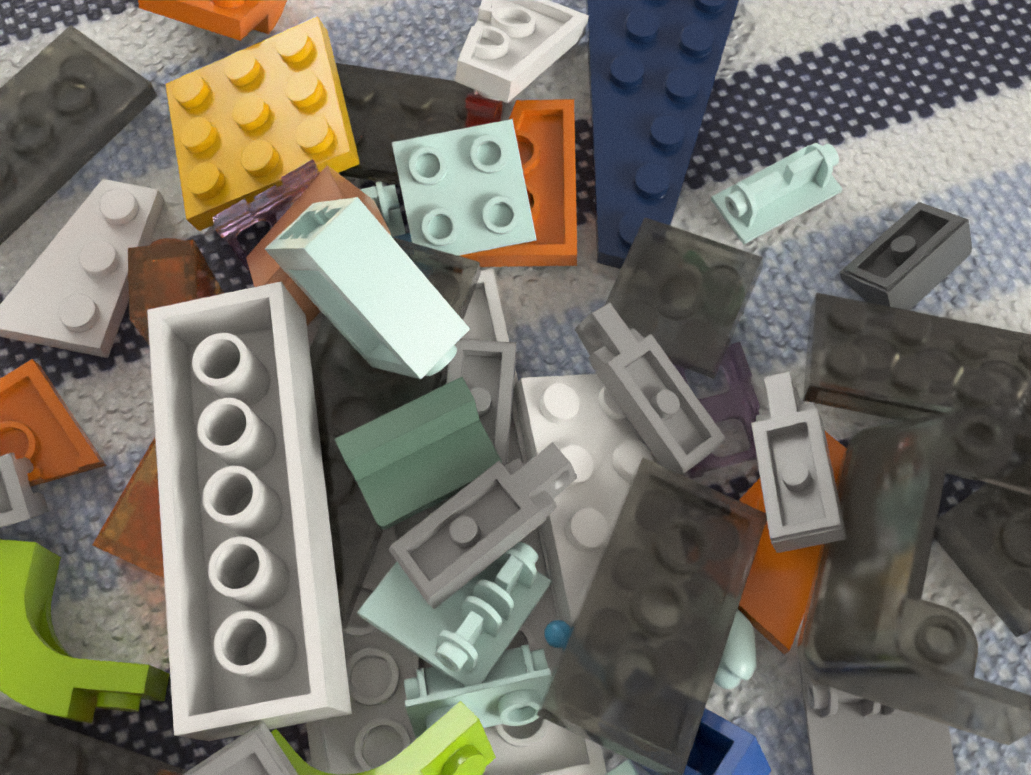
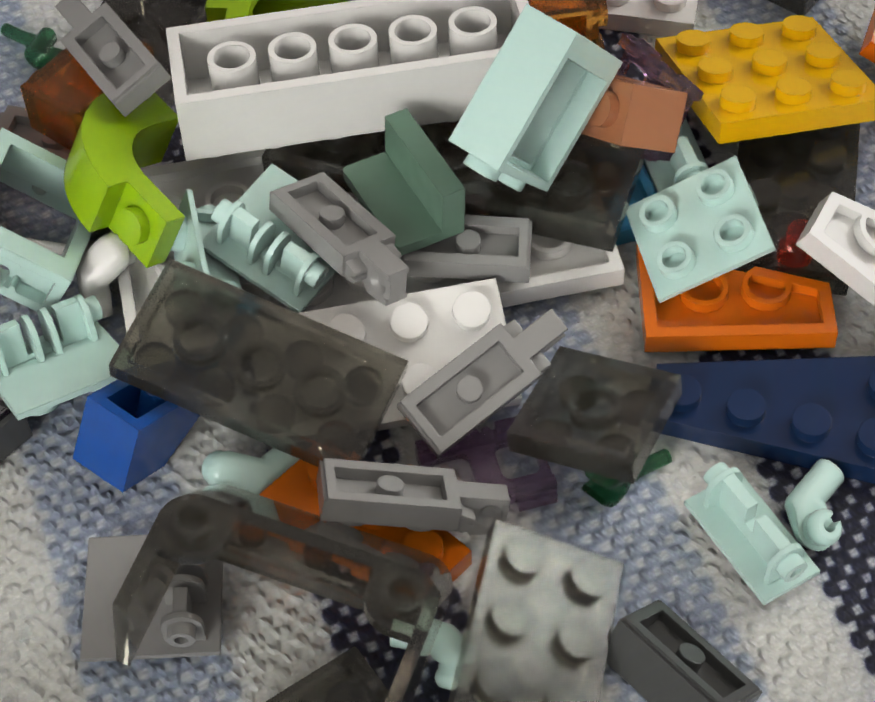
camera: 90 degrees right, 15 degrees down
(747, 149) = (808, 509): none -> light aqua arm

